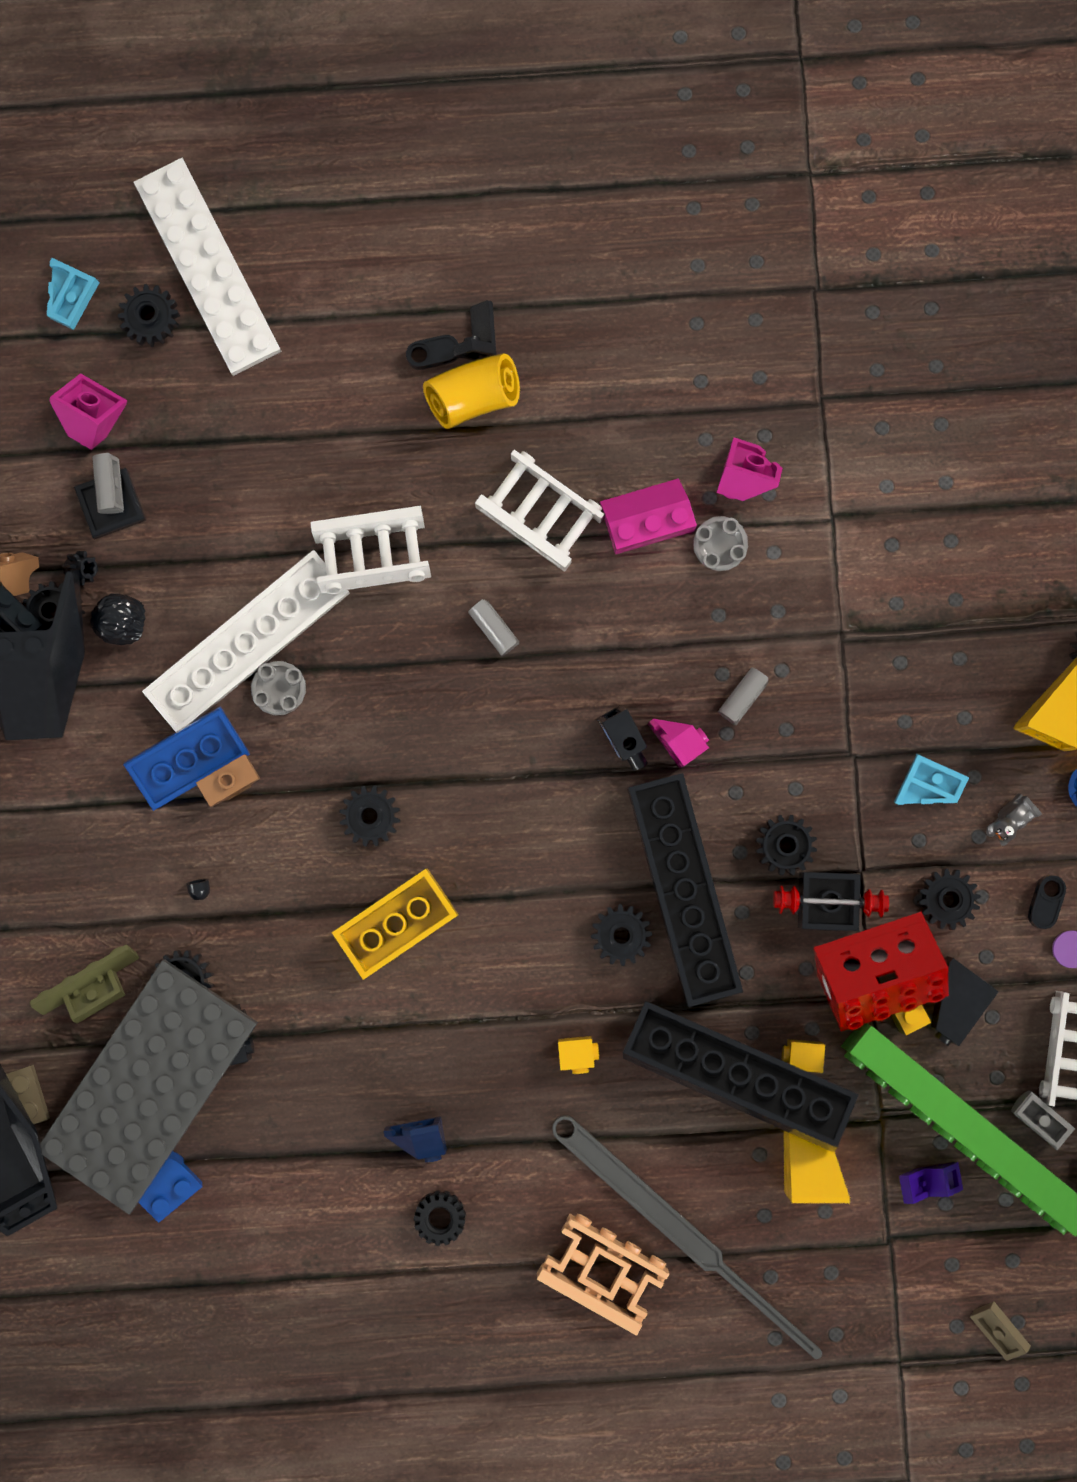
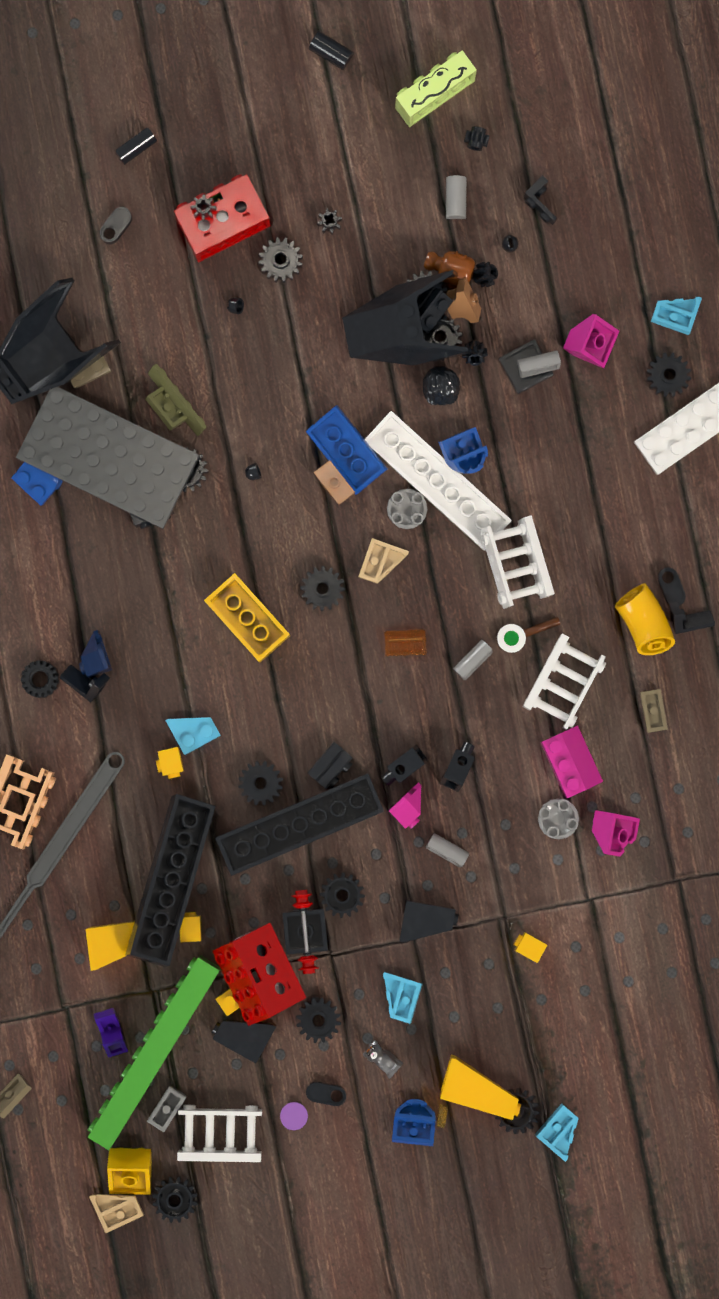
camera: 80 degrees right, 0 degrees up
(212, 600) = (464, 451): none -> blue slope
(343, 732) = (380, 560): none -> tan wing
(456, 1160) = (82, 684): none -> black bracket
(458, 714) = (405, 642): none -> clear orange slope
(471, 570) = (512, 637): none -> piece
(540, 1017) = (193, 732): none -> medium azure wing
(594, 398) = (653, 710): none -> dark tan plate
(610, 837) = (330, 765): none -> black brick
(646, 670) = (456, 774): none -> black torso
(834, 737) = (426, 920): none -> black slope
(886, 604) = (529, 946): none -> yellow brick

